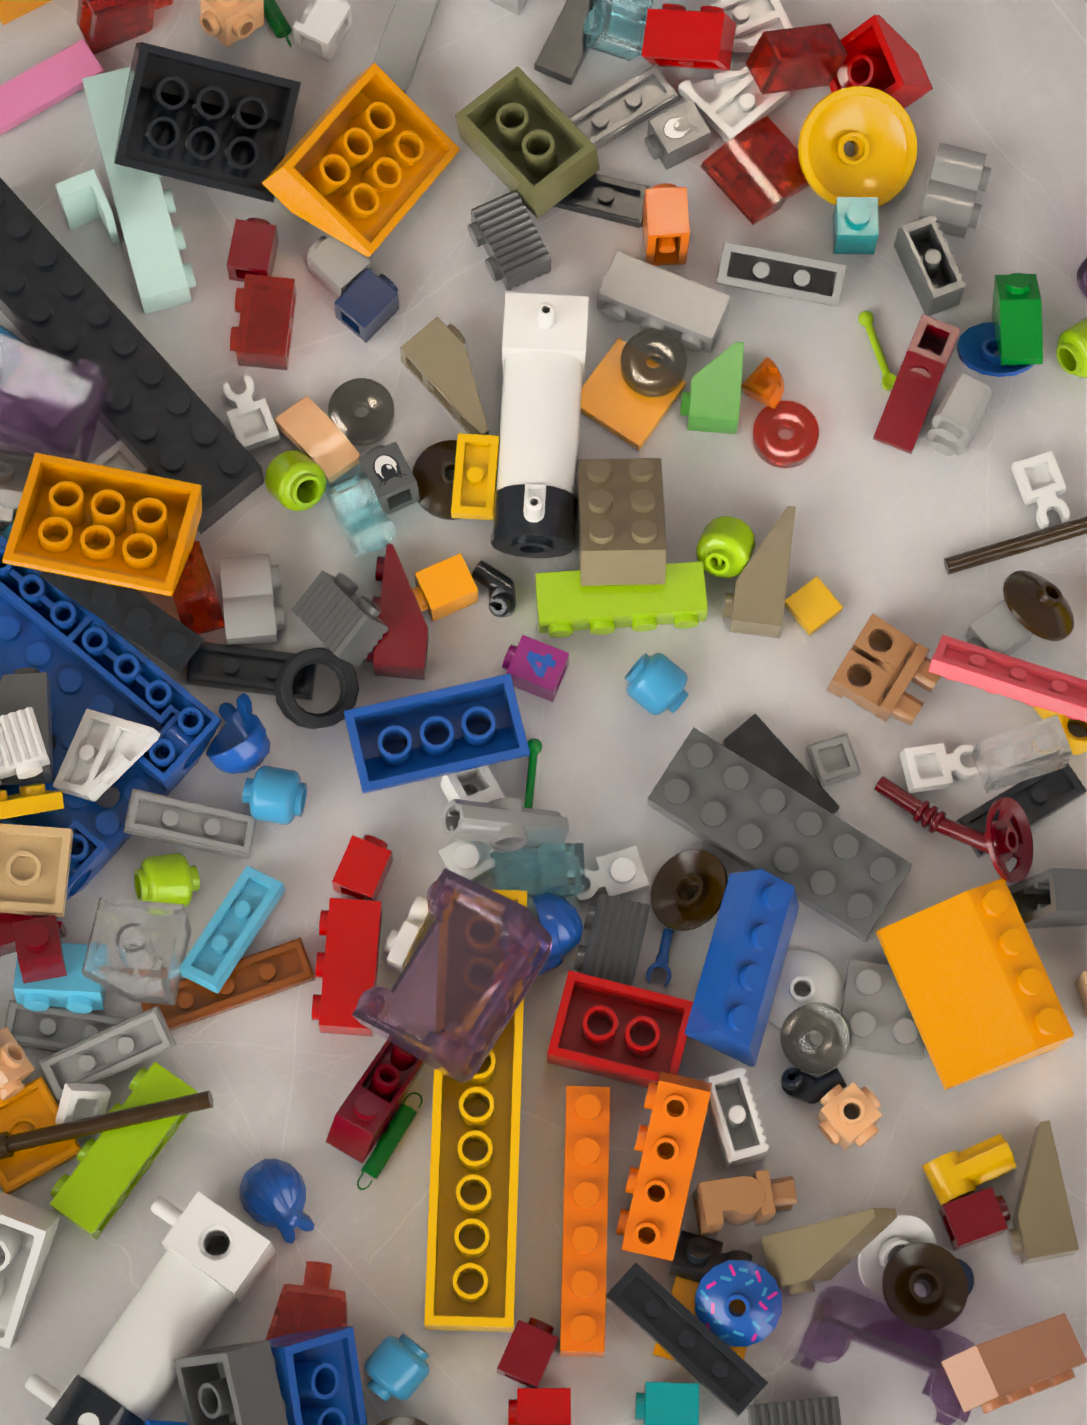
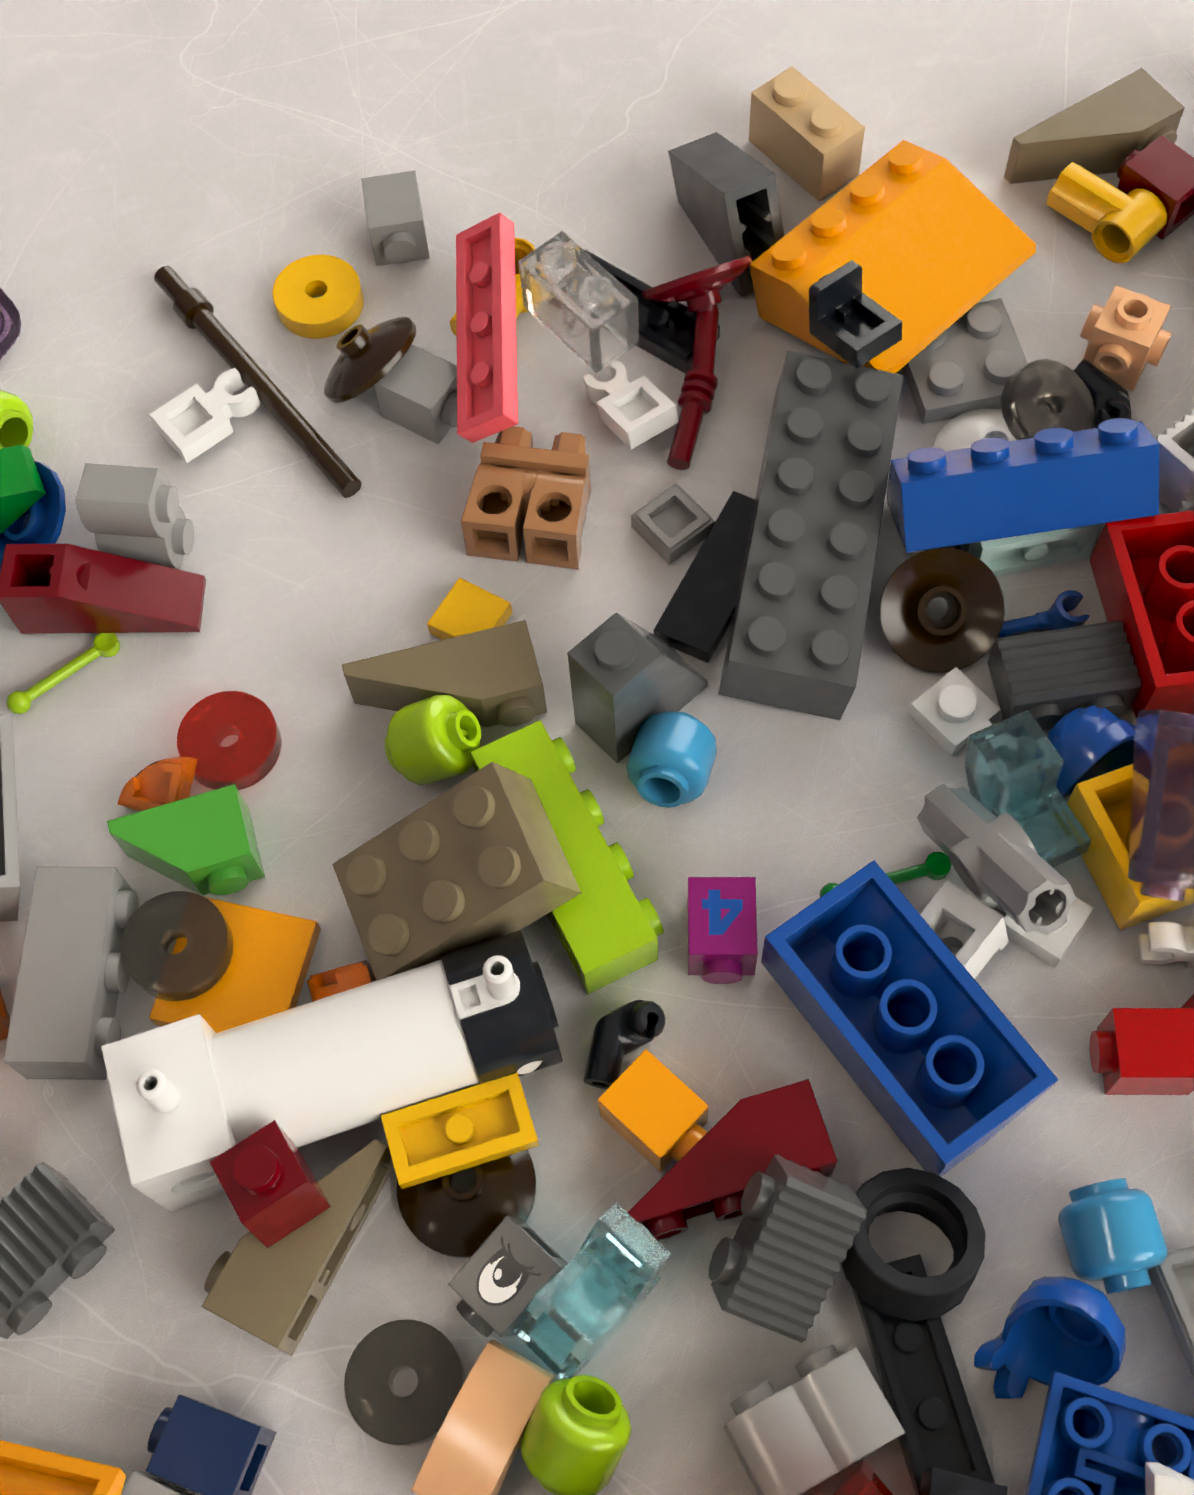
camera: 105 degrees left, 10 degrees down
(480, 363) = (269, 1184): none -> dark red brick
(594, 445) = (340, 979): none -> orange tile
(712, 675) = (624, 678): none -> dark grey slope
(914, 911) = (849, 319): none -> black bracket

